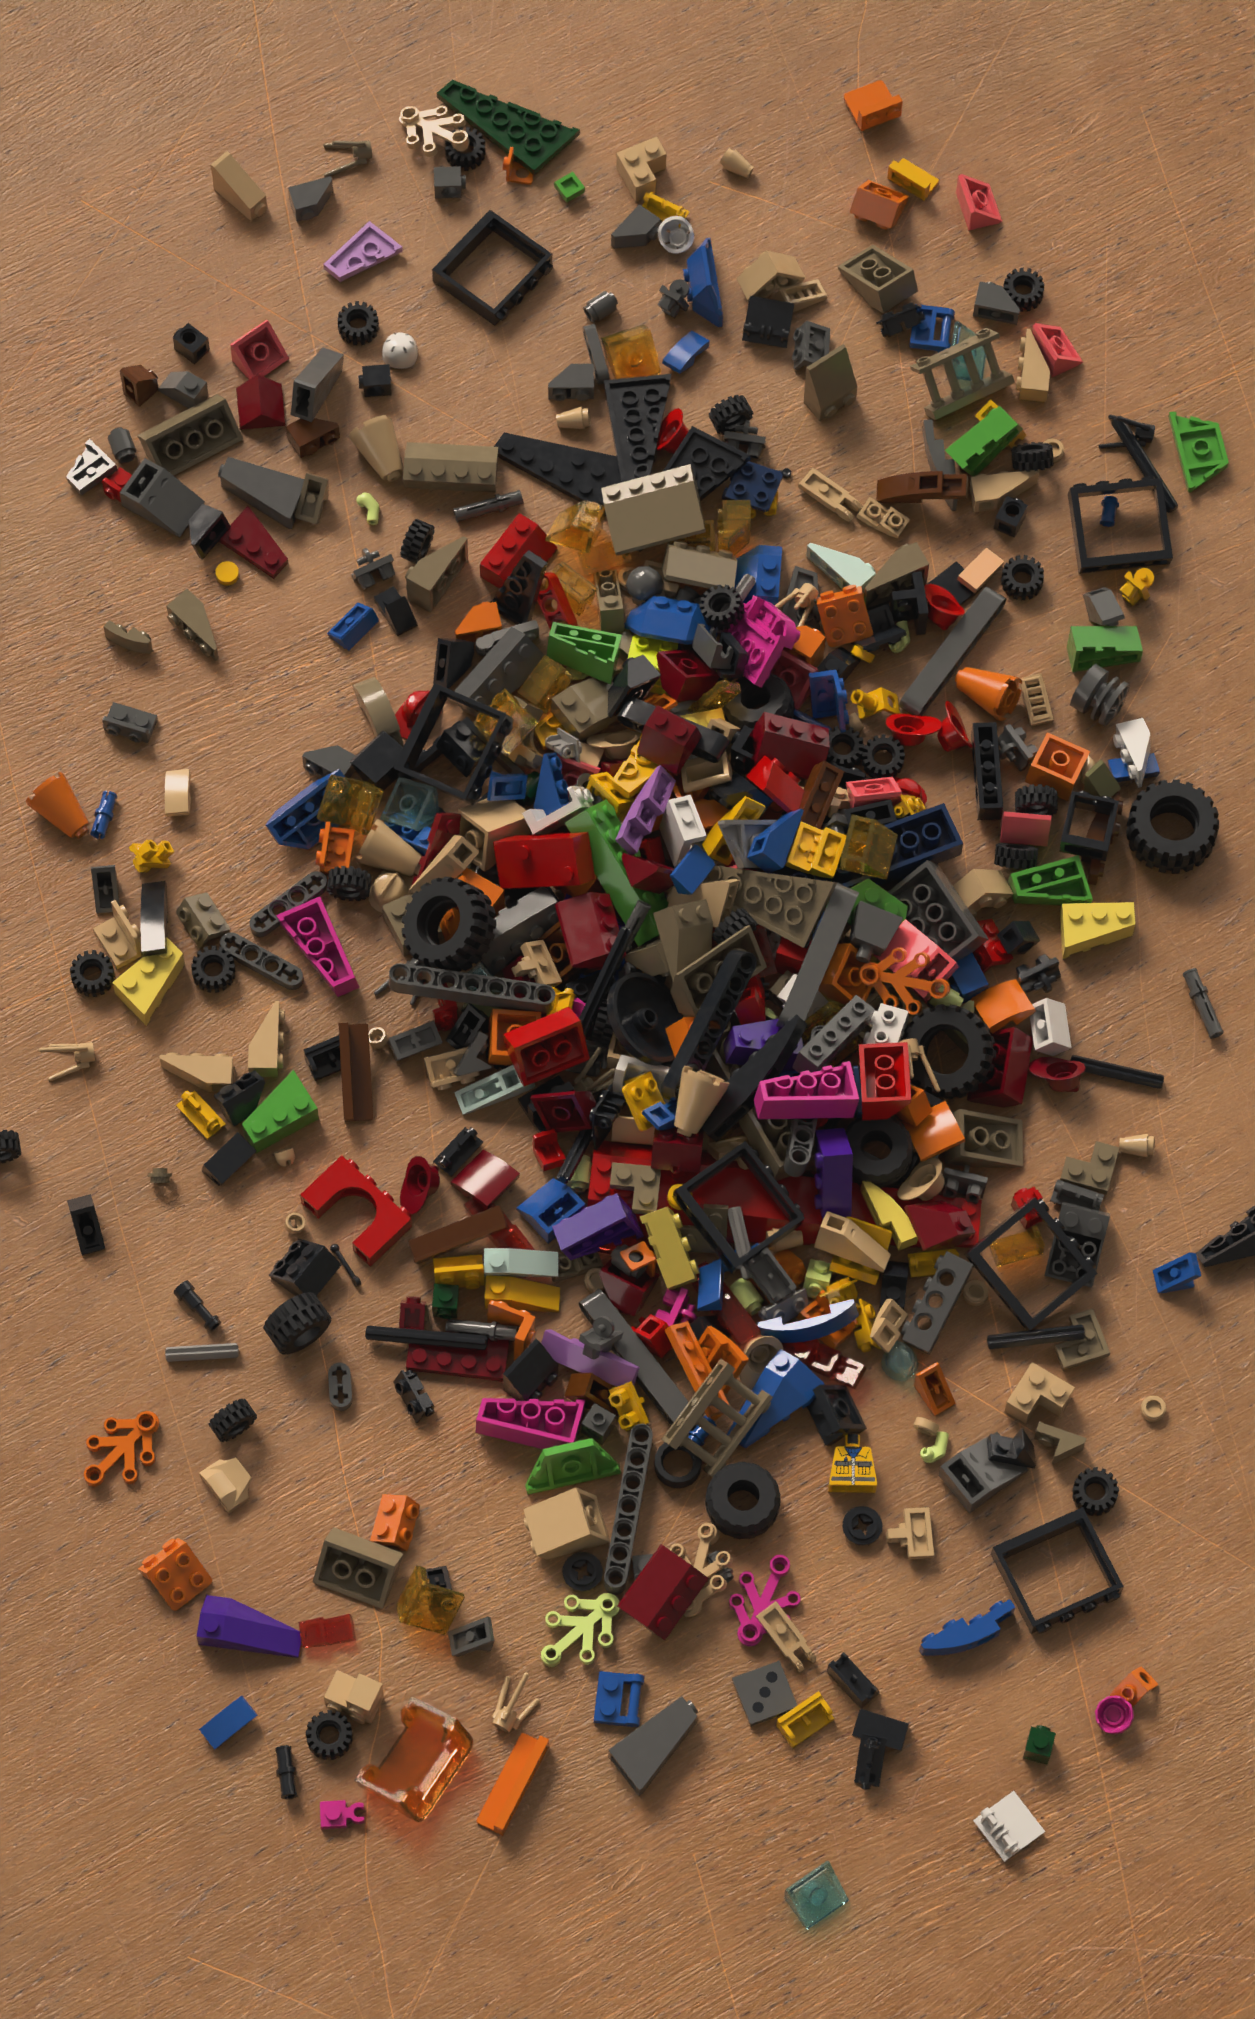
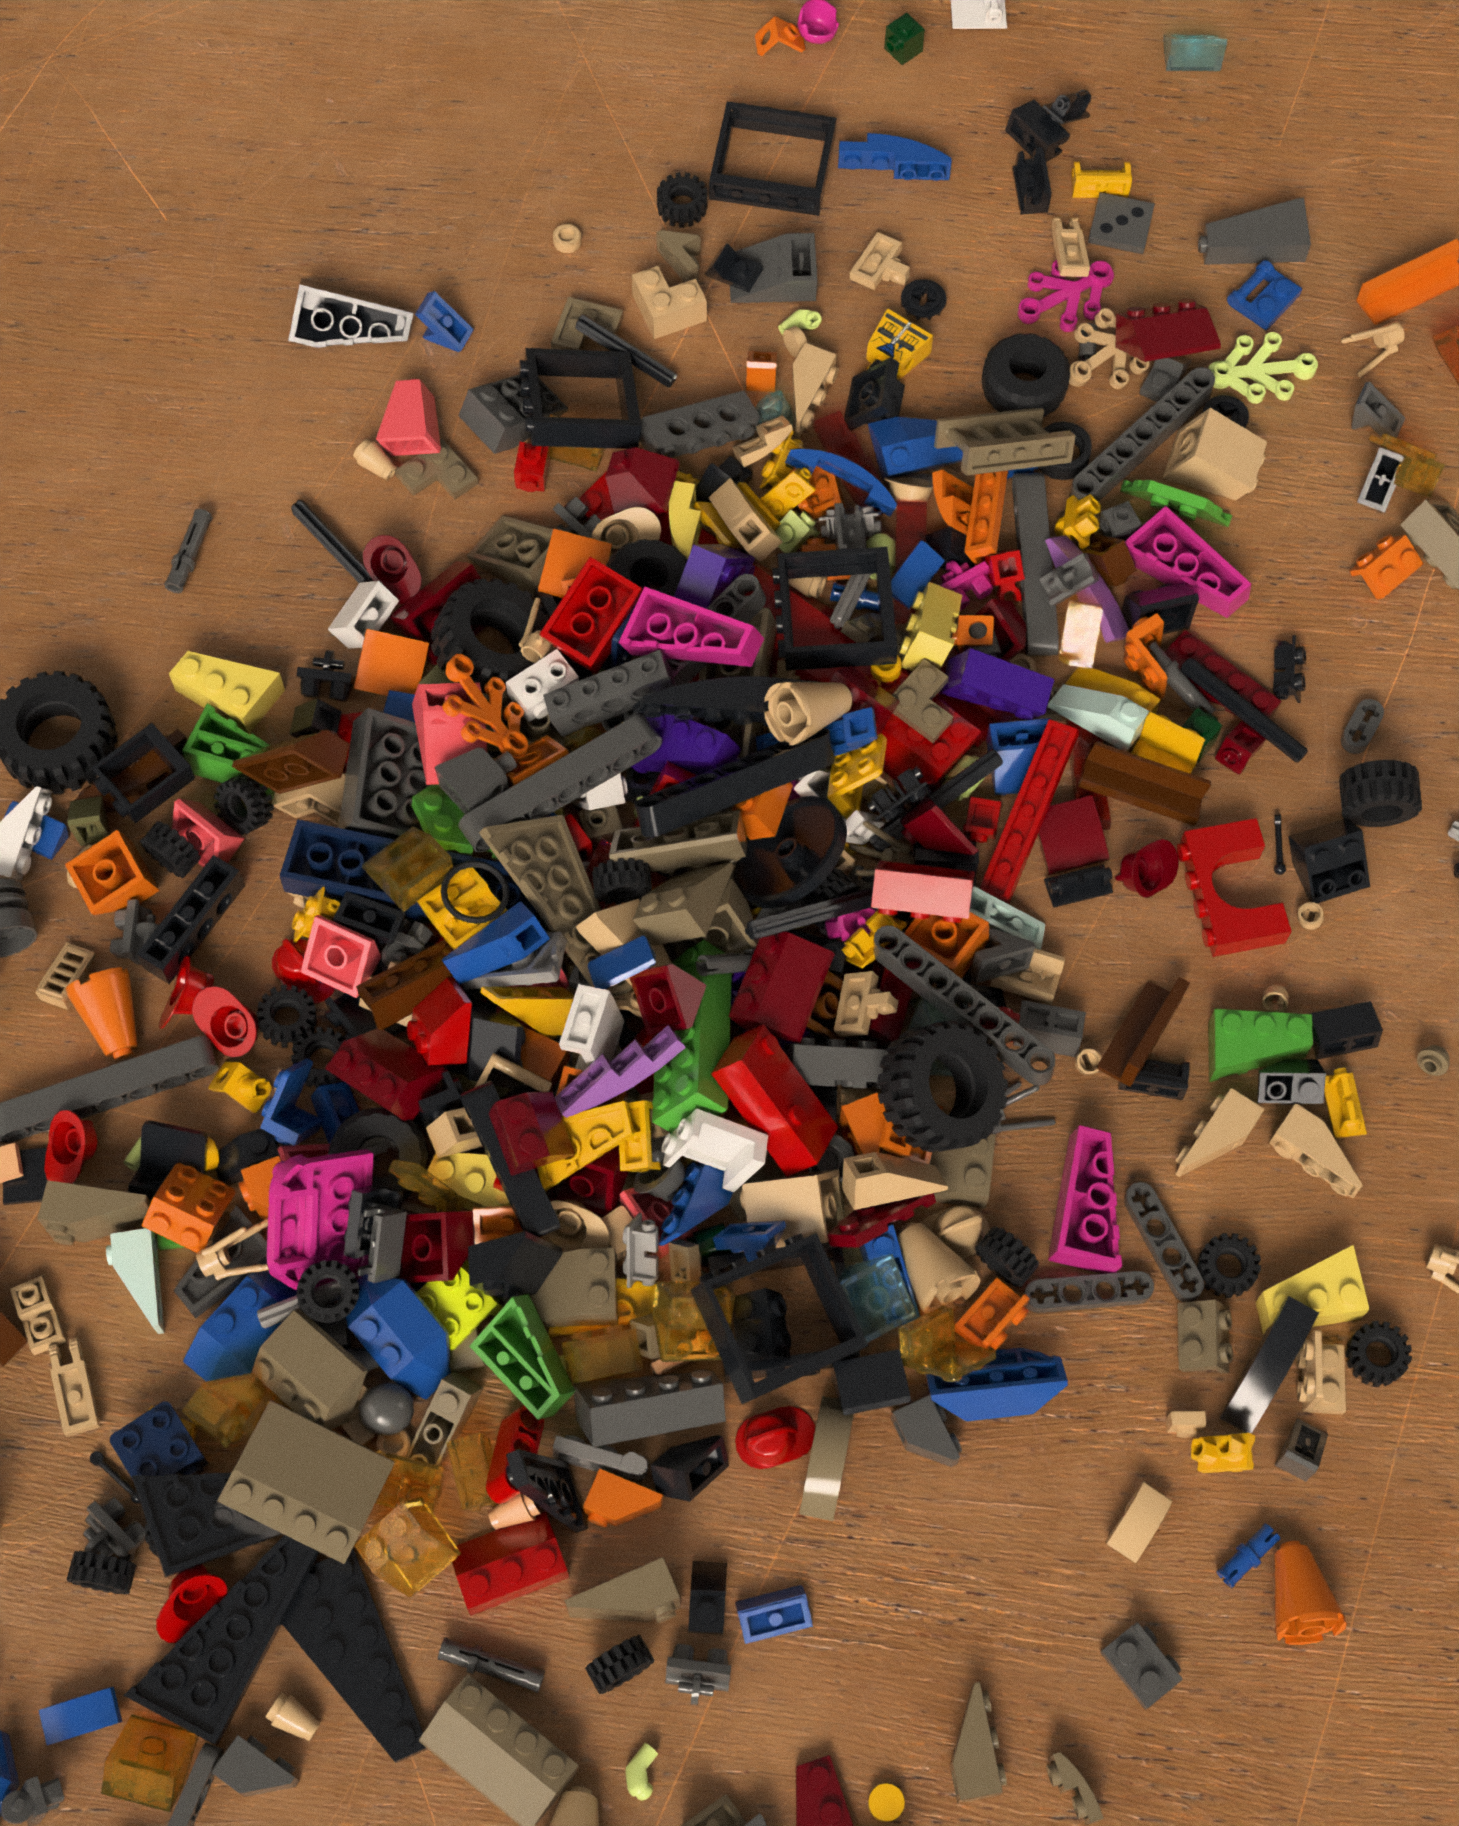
camera: 145 degrees left, 0 degrees up
(183, 862) = (1186, 1423): none -> tan plate
(519, 1164) = (1029, 810): none -> red plate
(569, 1318) = (1080, 634): none -> clear yellow hinge
(820, 836) = (470, 919): none -> black tyre
(894, 1400) = (810, 377): none -> tan slope
(911, 604) = (101, 1161): black bracket -> none
(995, 873) = (296, 762): none -> reddish brown slope
(1075, 1195) = (475, 452): dark grey hinge -> none
(1135, 1183) = (410, 421): none -> coral slope

